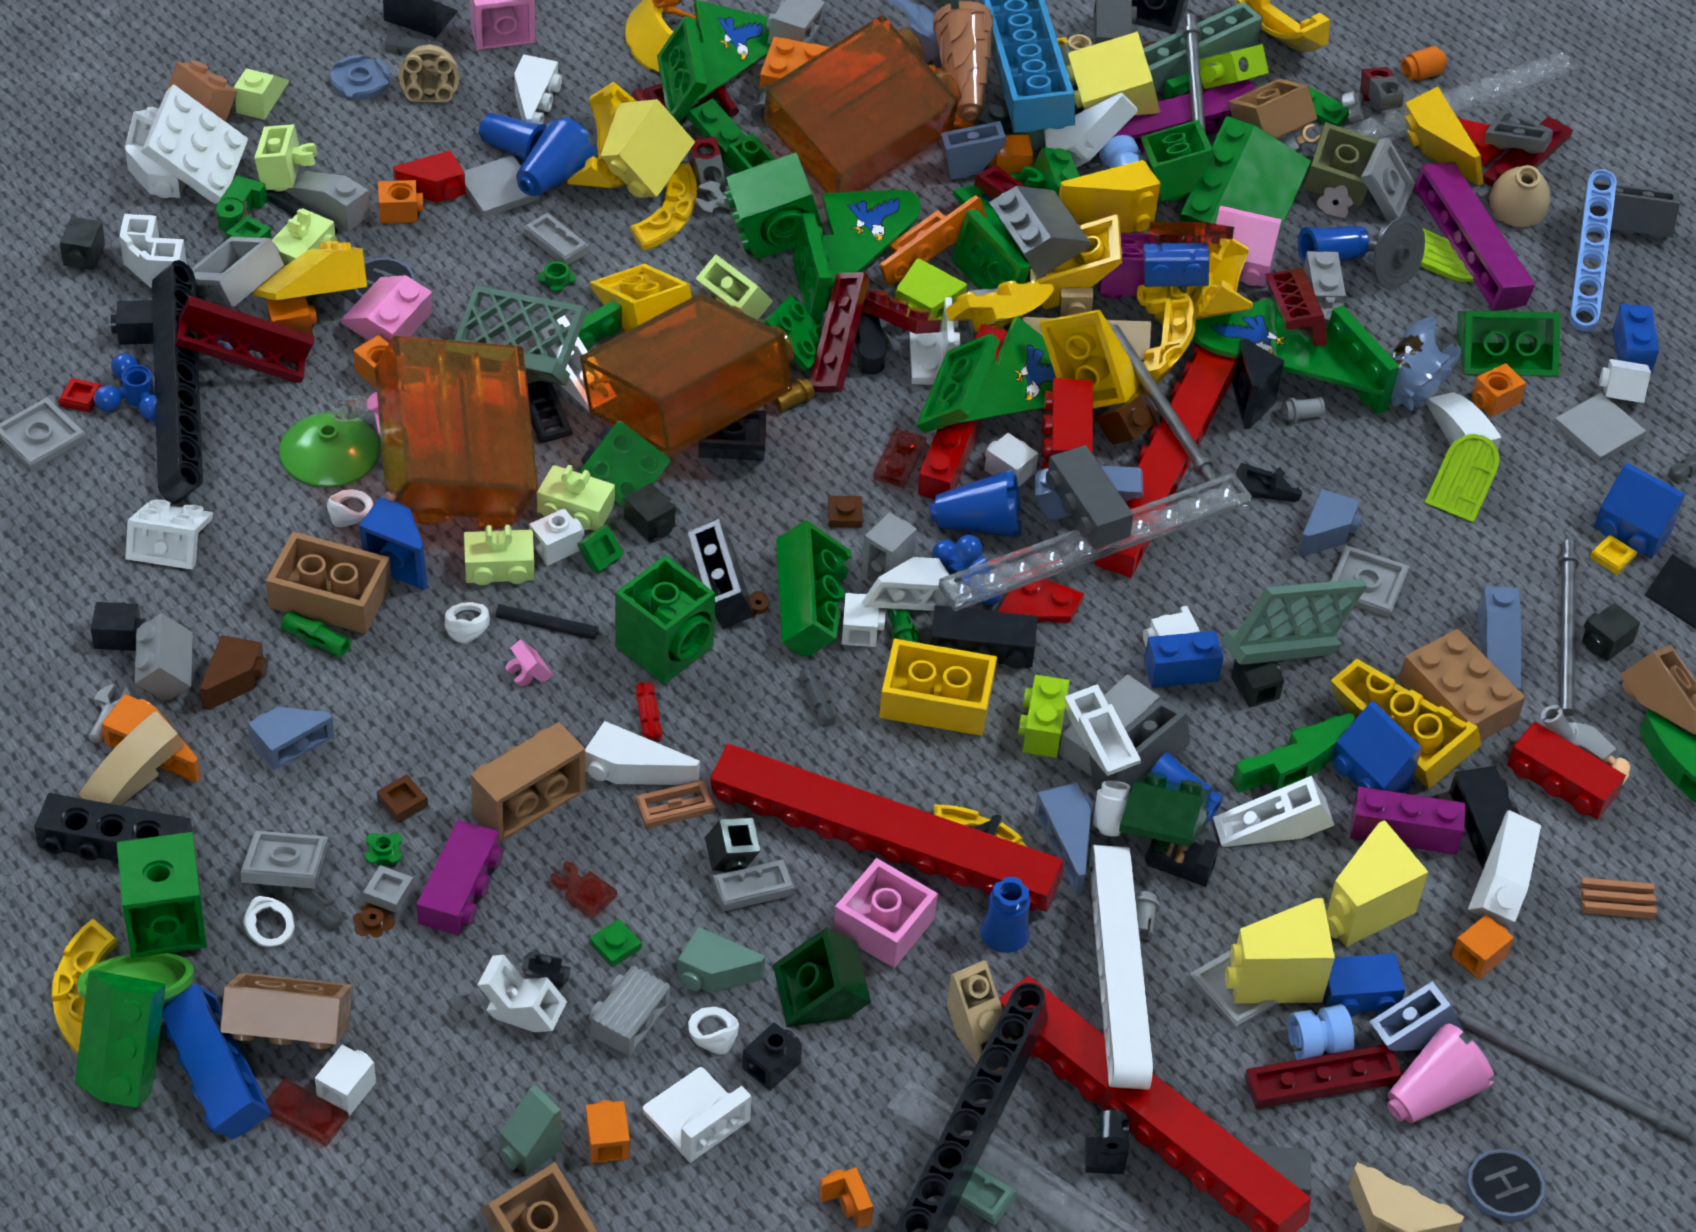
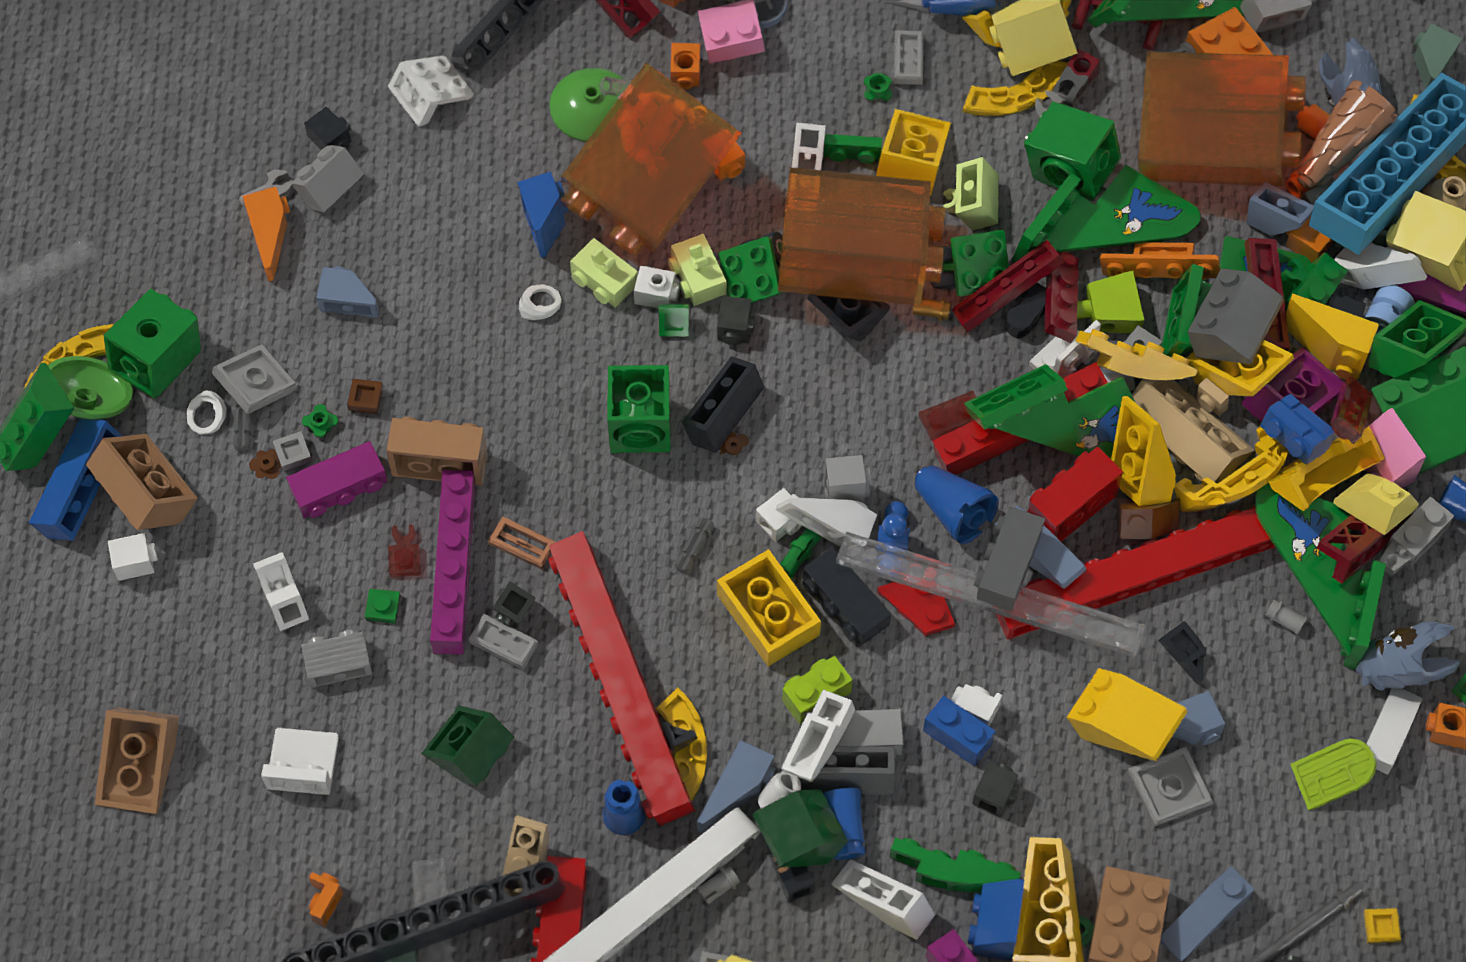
camera: 50 degrees right, 15 degrees up
(96, 827) = (163, 241): black brick -> none
(133, 762) = (232, 239): tan slope -> none
(232, 670) = (359, 221): reddish brown slope -> none
(306, 1112) = (96, 556): clear red plate -> none
(315, 634) = (439, 235): green pin -> none
(329, 582) = (477, 205): medium nougat brick -> none
(343, 516) = (547, 149): white piece -> none
(530, 663) = (540, 366): bright pink tile -> none
(531, 1132) = (189, 687): sand green slope -> none
(537, 366) = (763, 126): sand green fence -> none
(540, 390) = (760, 165): black slope -> none
(541, 965) = (312, 587): black slope -> none
(547, 621) = (586, 342): black bar -> none
(607, 1131) = (237, 724): orange brick -> none
(632, 759) = (523, 488): white slope -> none
(639, 856) = (453, 562): none -> magenta brick
(648, 711) = (577, 464): red axle -> none
(717, 963) = (418, 673): sand green slope -> none
(720, 1041) = (370, 729): white piece -> none
(736, 149) = (1114, 74): green slope -> none
(772, 1056) = (383, 766): black brick -> none
(810, 587) = (774, 462): green wedge -> none
(845, 511) = (868, 425): reddish brown plate -> none
(885, 912) = (552, 734): bright pink brick -> none
(1011, 454) = (1020, 481): white brick -> none
(1202, 465) = (1140, 599): flat silver bar -> none
(1255, 381) = (1261, 570): black slope -> none
(1282, 273) = (1377, 502): none -> light yellow slope
(1291, 546) = (1125, 715): none -> yellow slope
(1296, 637) = (1045, 775): sand green fence -> none
(1639, 510) = (1428, 912): blue slope -> none

